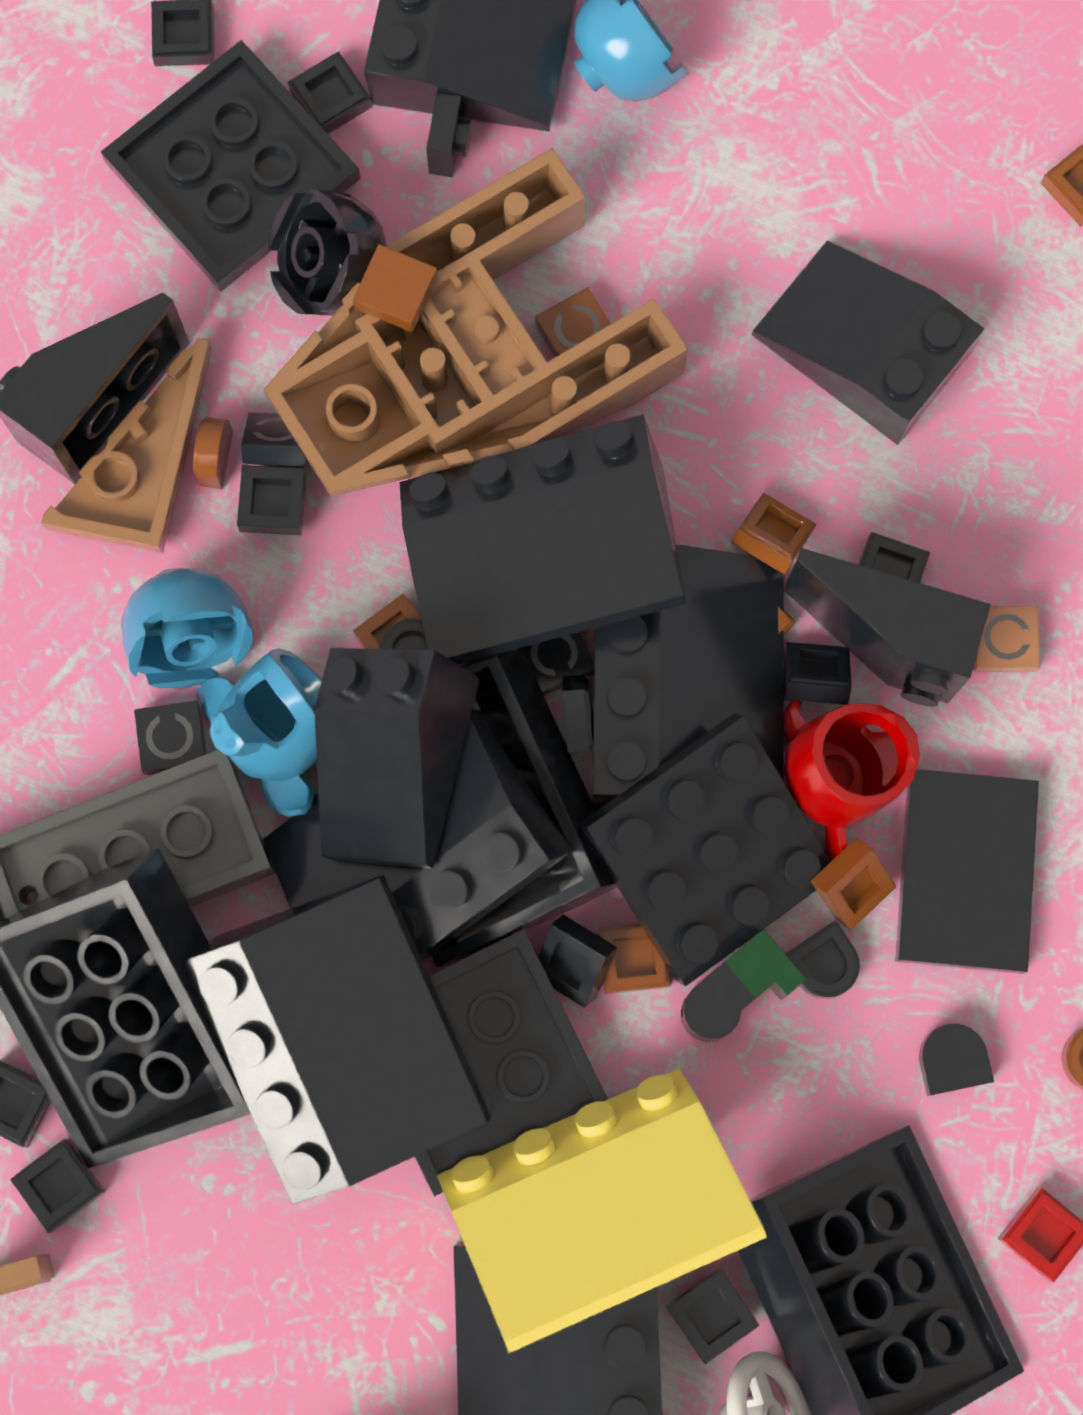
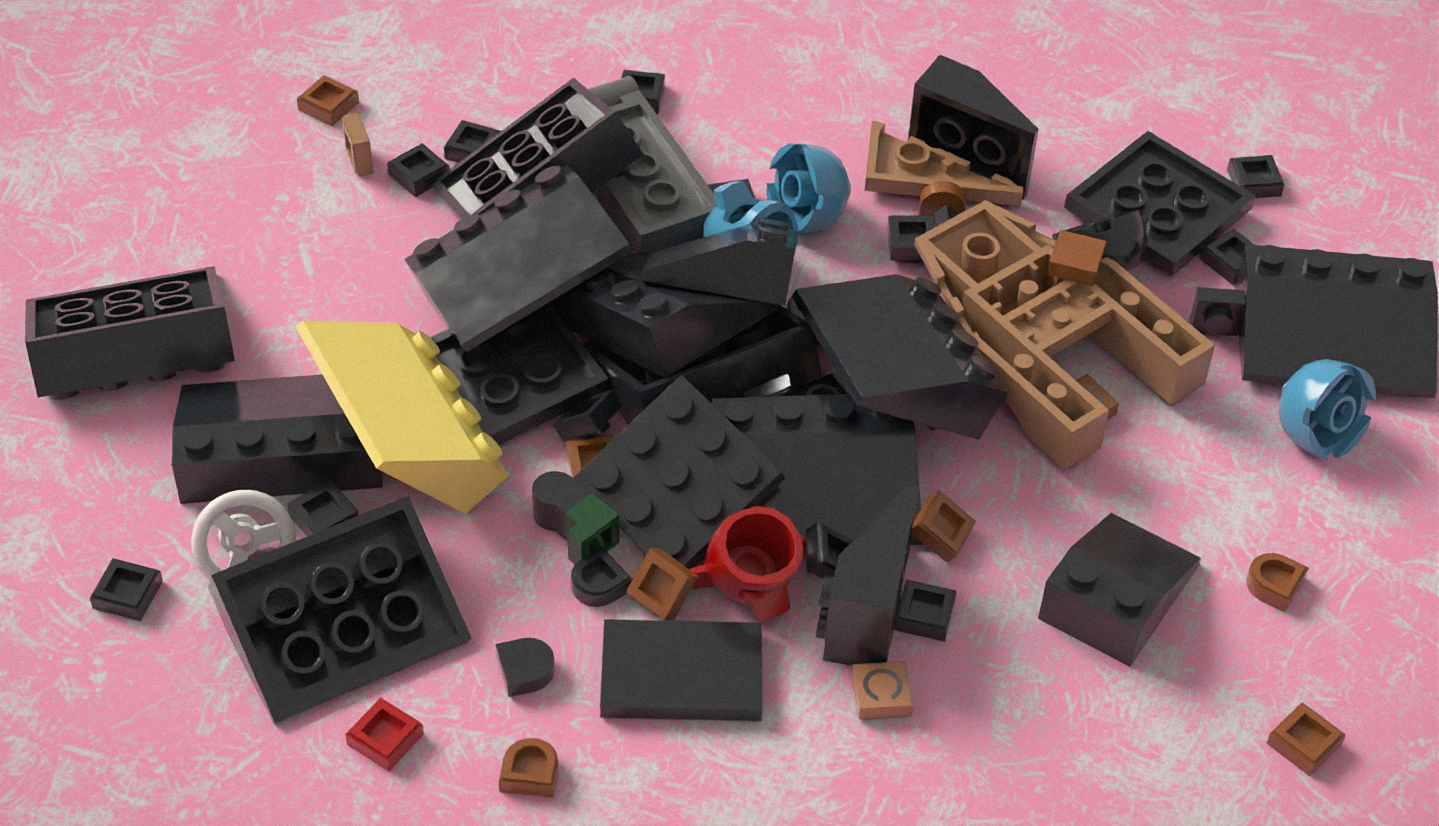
camera: 85 degrees right, 30 degrees down
(862, 163) = (1275, 579): none -> dark orange tile

